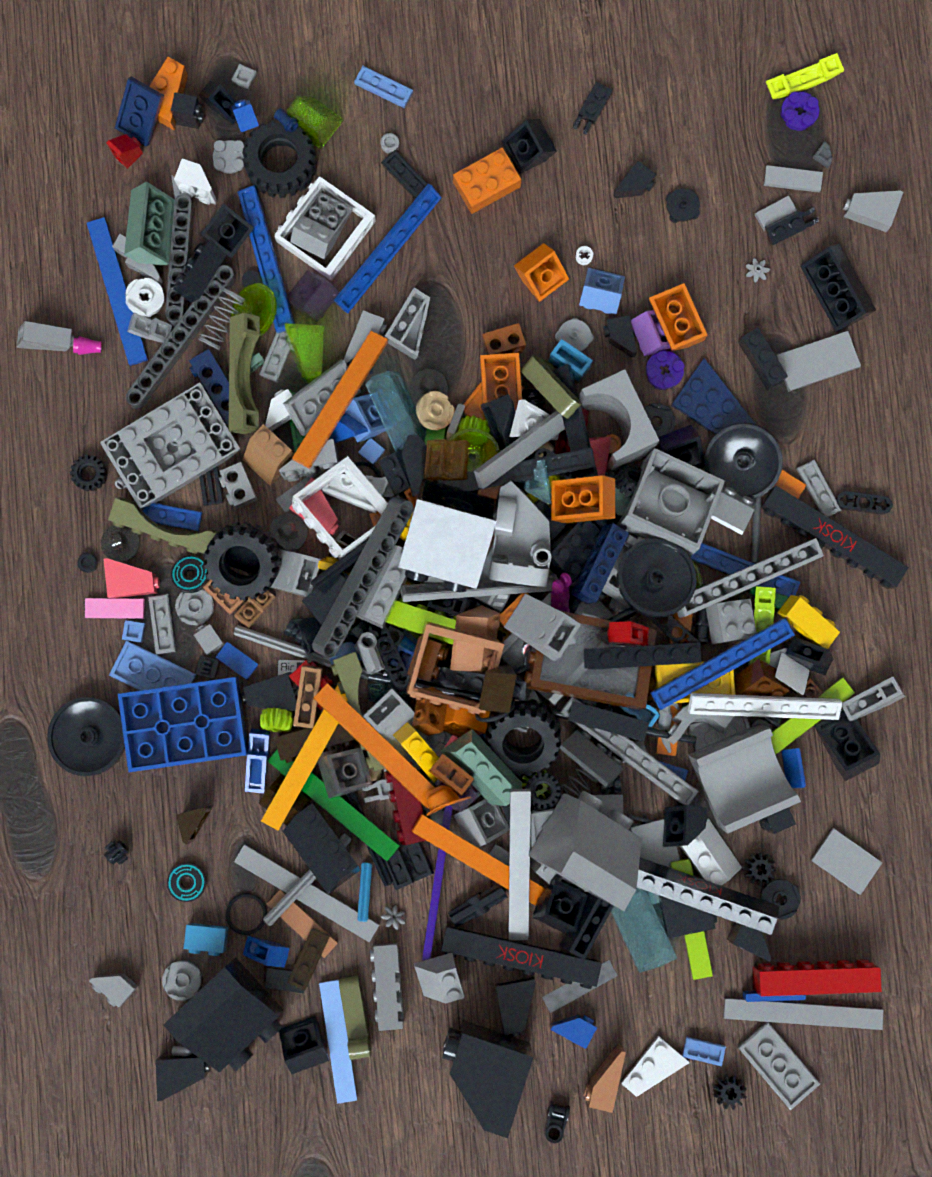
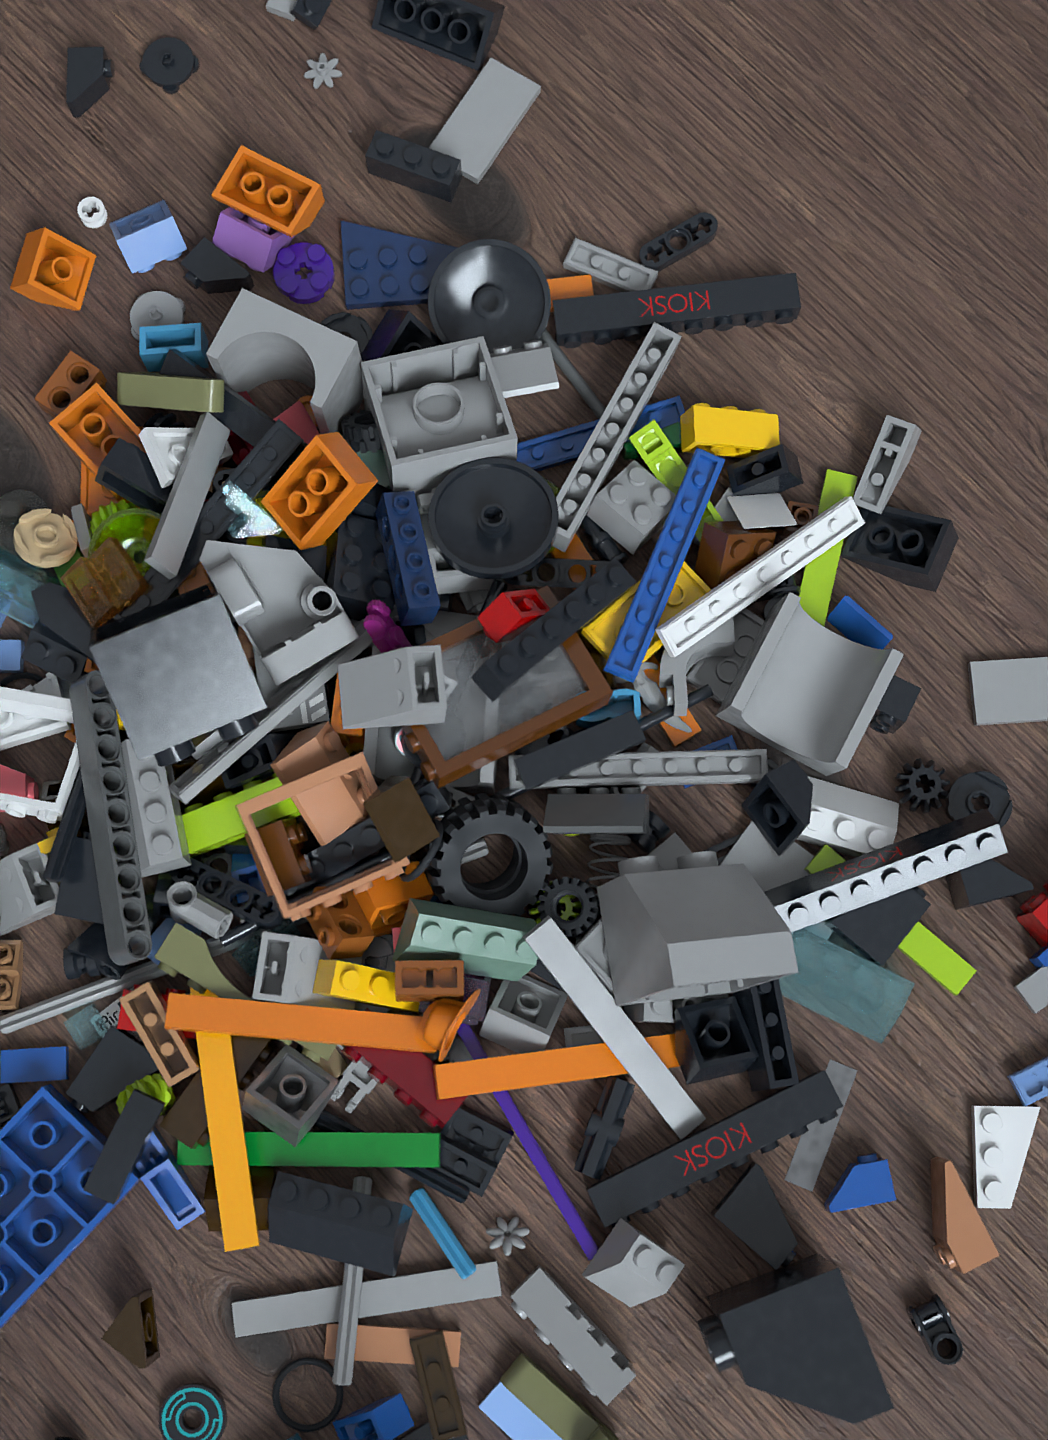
camera: 35 degrees left, 5 degrees down
(252, 736) = (124, 1146): none -> black slope
(274, 662) = (86, 1027): none -> clear light blue tile

